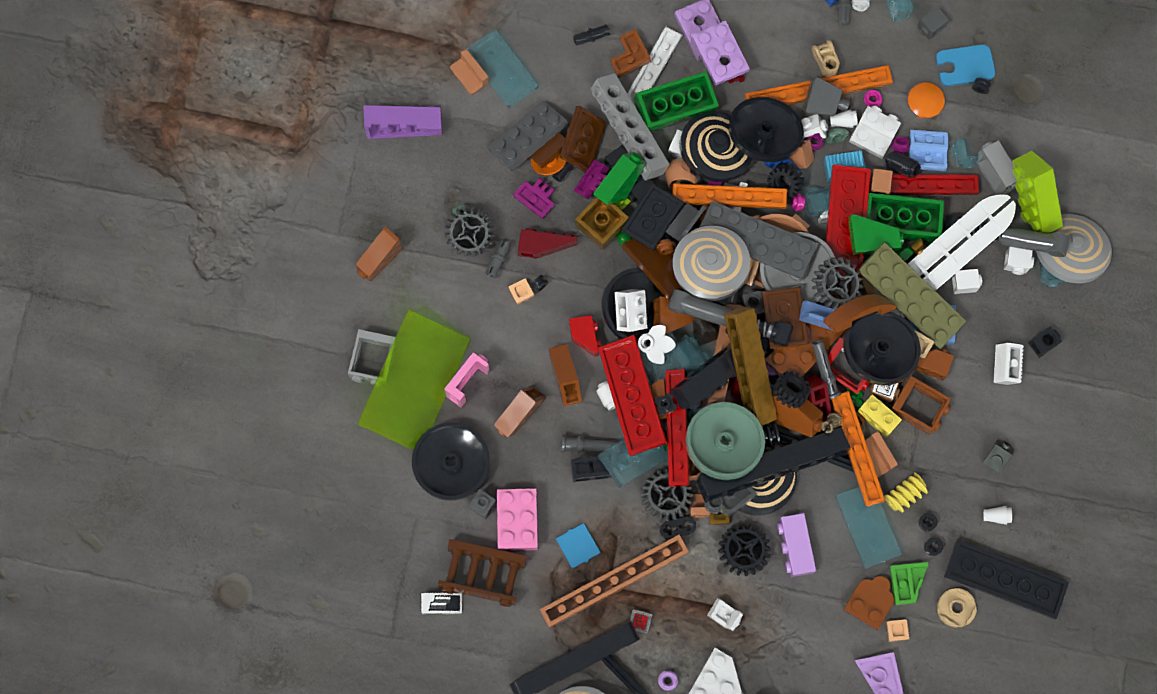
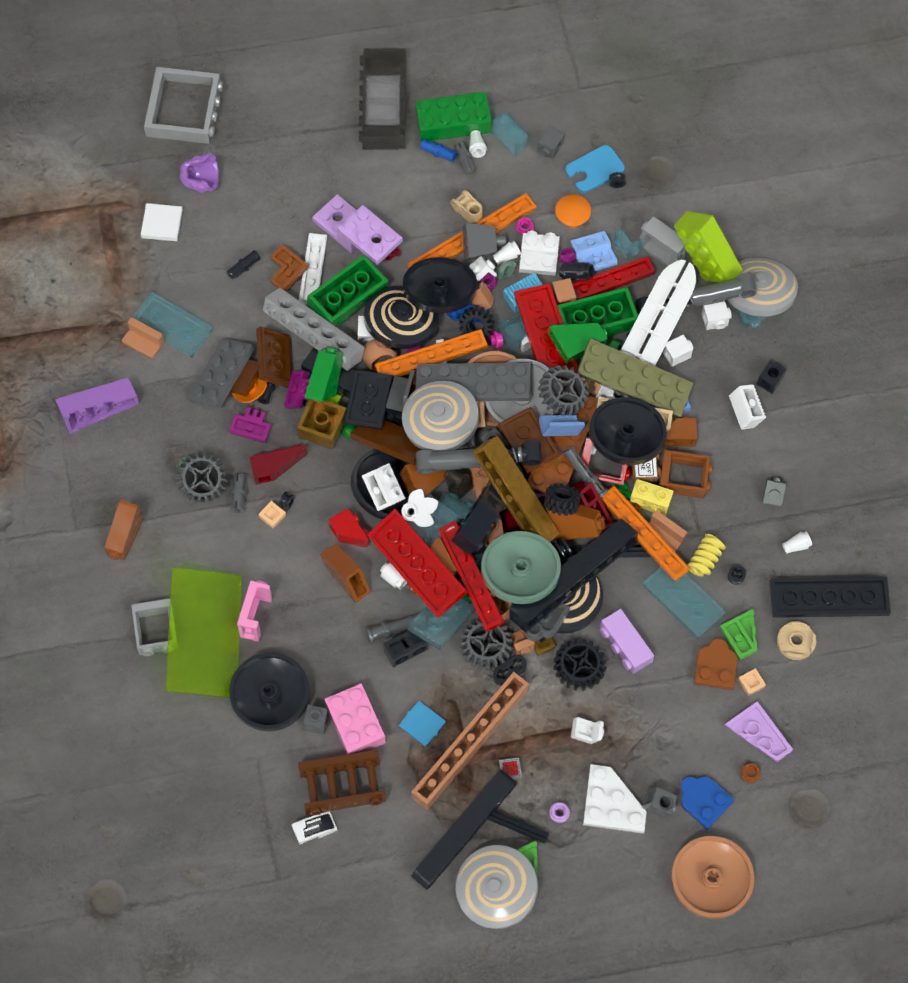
camera: 20 degrees left, 10 degrees down
(519, 411) = (315, 621): slope -> none
(666, 247) = (392, 421): dark orange plate -> none
(671, 407) = (457, 558): black plate -> none
(833, 420) = (615, 515): dark tan pin -> none
(844, 315) = (582, 413): dark orange slope -> none
(918, 246) = (621, 336): pearl gold piece -> none
(937, 541) = (752, 588): black bush -> none

